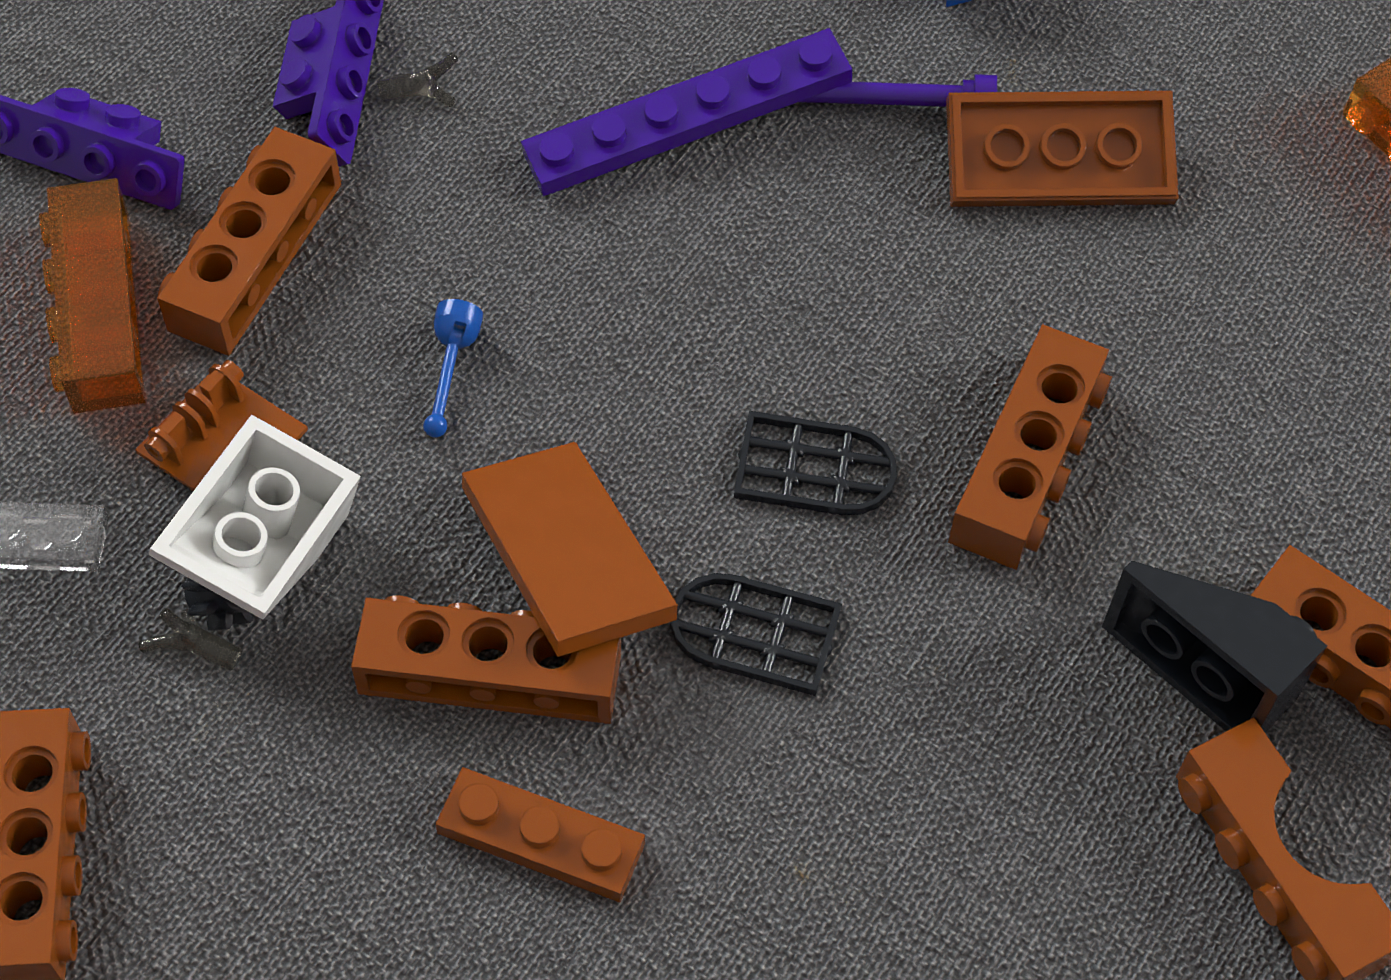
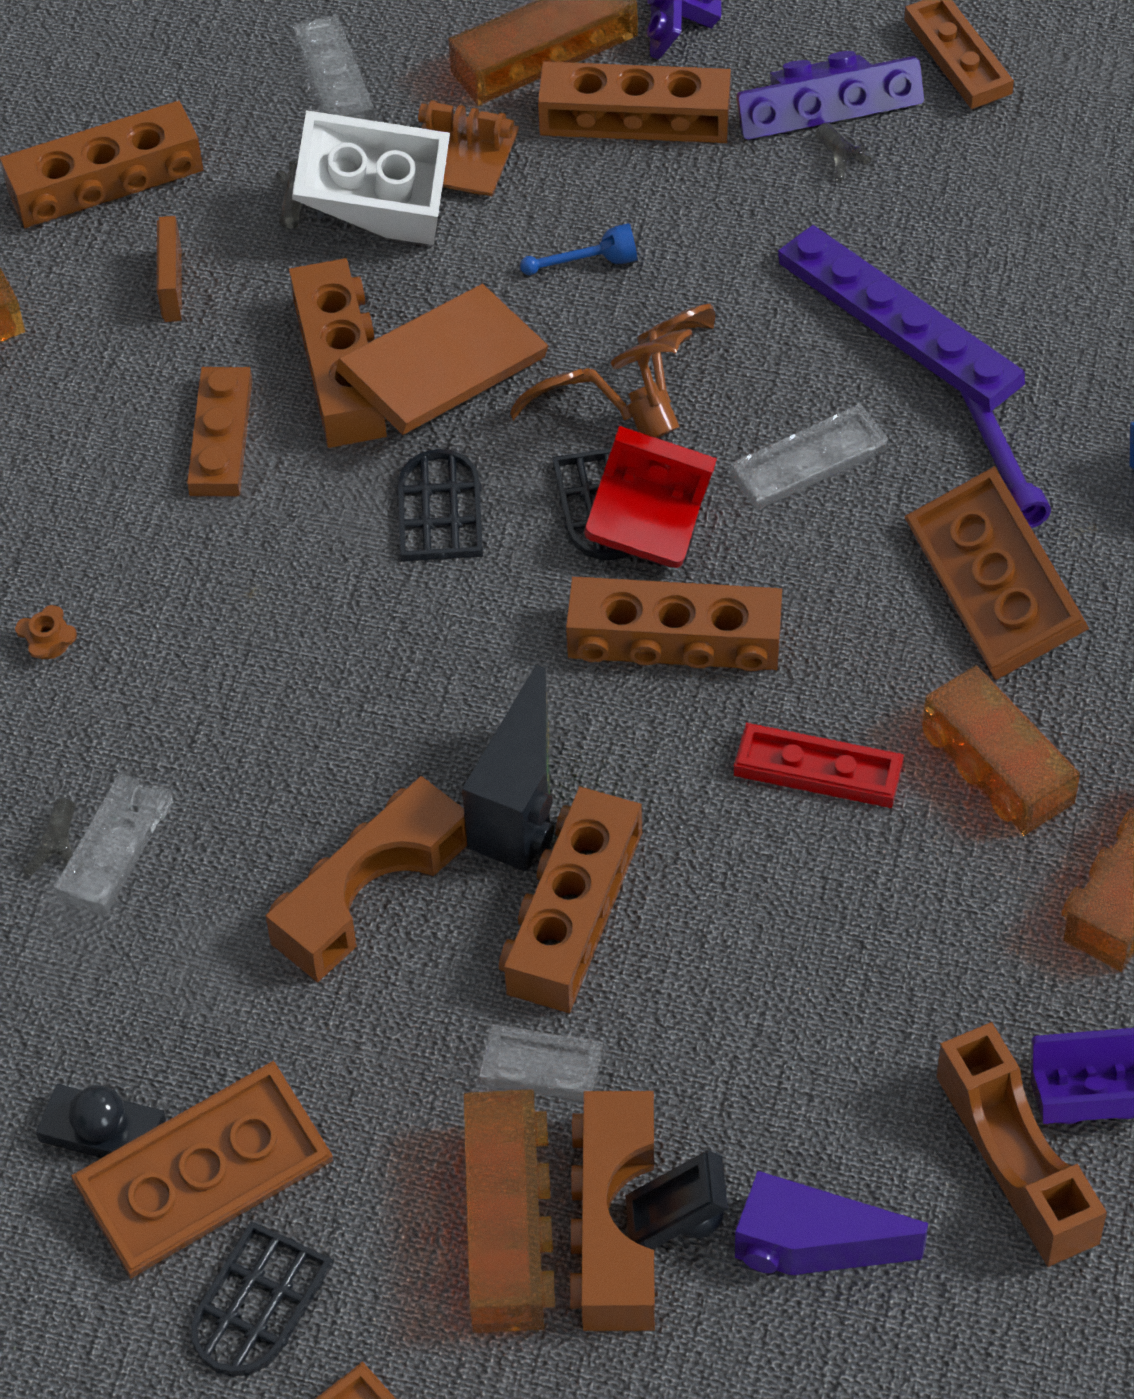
camera: 75 degrees right, 5 degrees down
(256, 813) = (169, 269): none -> dark orange tile
(729, 308) = (649, 404): none -> dark orange plant
(843, 254) = (808, 456): none -> clear plate
(857, 416) = (649, 497): none -> red bracket
(1241, 385) = (818, 765): none -> red tile
(1285, 221) = (999, 750): none -> clear orange brick

